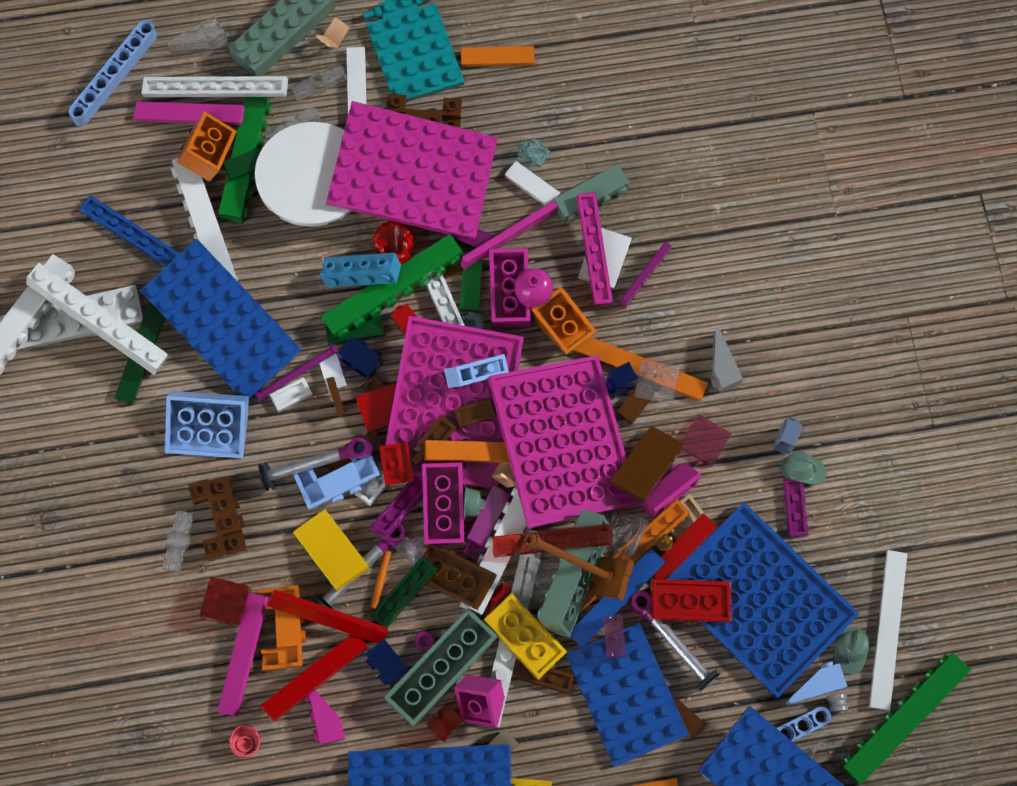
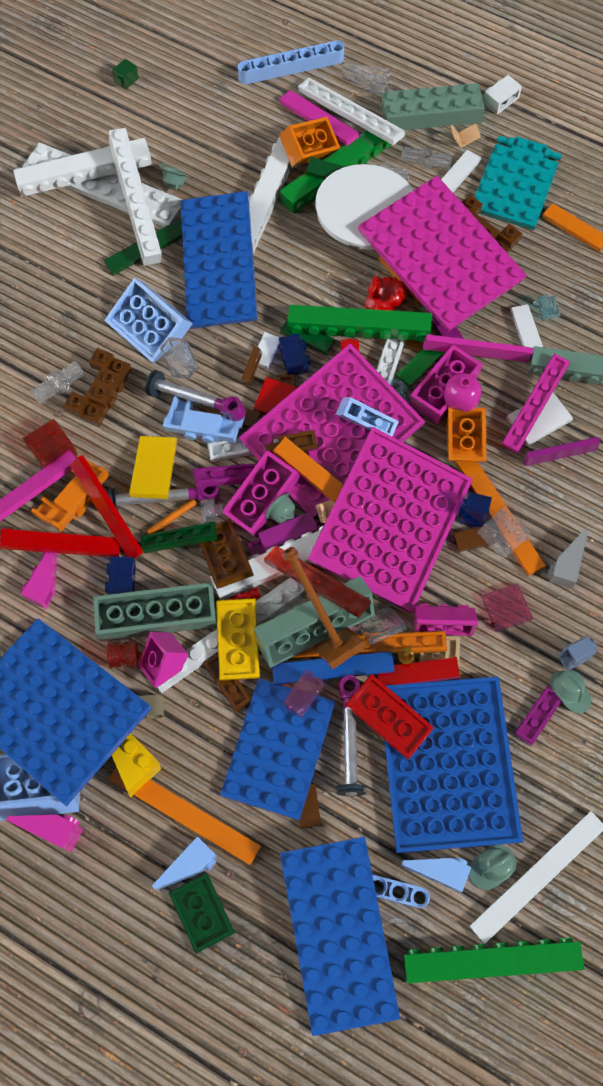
camera: 45 degrees right, 5 degrees down
(104, 268) = (172, 176): none -> sand green piece
(128, 231) = (210, 161): blue tile -> none
(266, 437) = (179, 358): none -> clear brick
(291, 394) = (223, 345): white tile -> none
(297, 372) = (239, 332): magenta bar -> none
(360, 270) = (345, 293): dark azure brick -> none
(396, 463) = (251, 440): red plate -> none
(424, 641) = (163, 582): magenta tile -> none
(474, 413) = (340, 448): reddish brown tile -> none
(647, 464) = (443, 587): reddish brown tile -> none
(837, 703) = (443, 899): light grey wheel -> none

